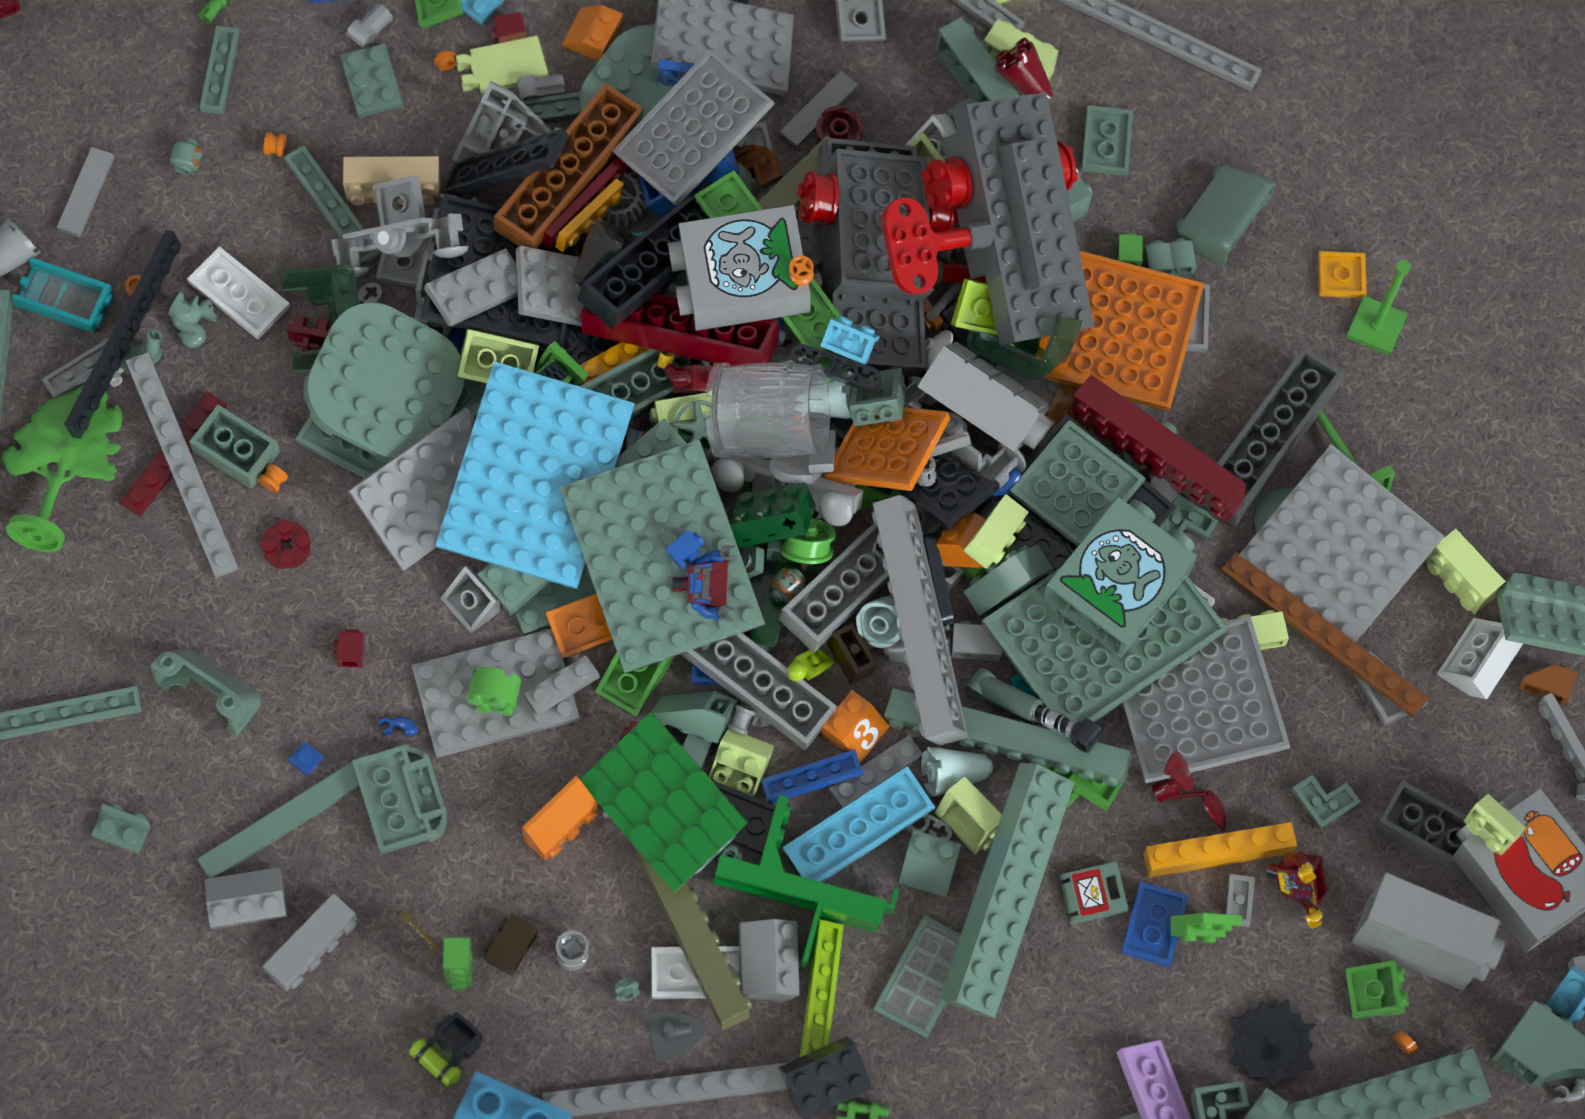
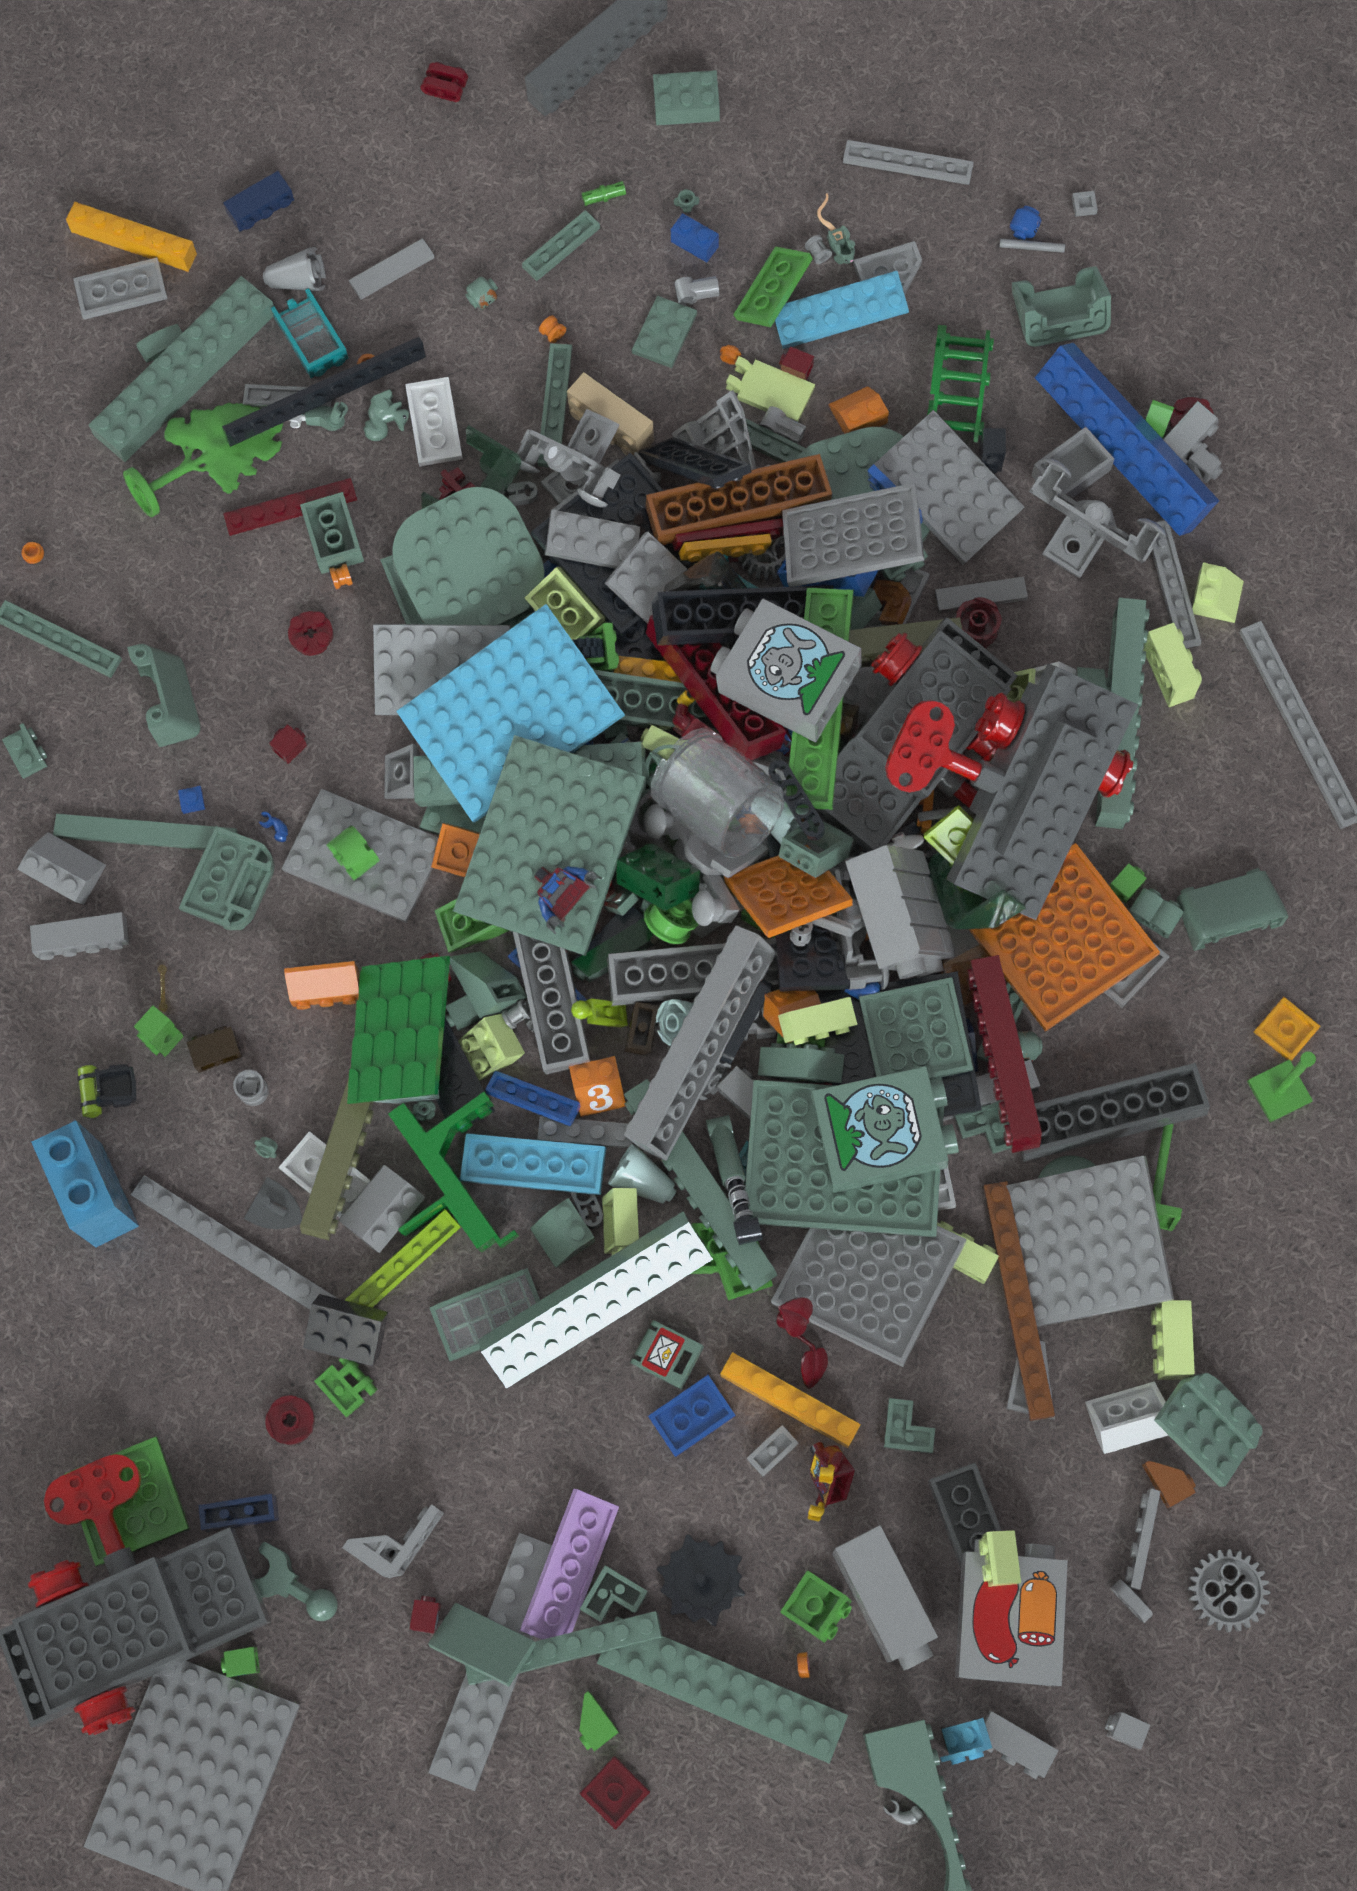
camera: 50 degrees right, 5 degrees up
(181, 465) = (284, 518): light grey plate -> none
(561, 685) = (410, 886): light grey plate -> none
(685, 549) = (564, 852): blue brick -> none
(786, 584) = (633, 938): sand green head -> none
(799, 265) = (819, 697): orange wheel -> none
(849, 339) = (824, 785): medium azure bracket -> none
(1023, 68) = (1157, 679): dark red cone -> none
(1107, 140) = (1187, 783): sand green plate -> none
(1203, 926) = (724, 1449): bright green plate -> none

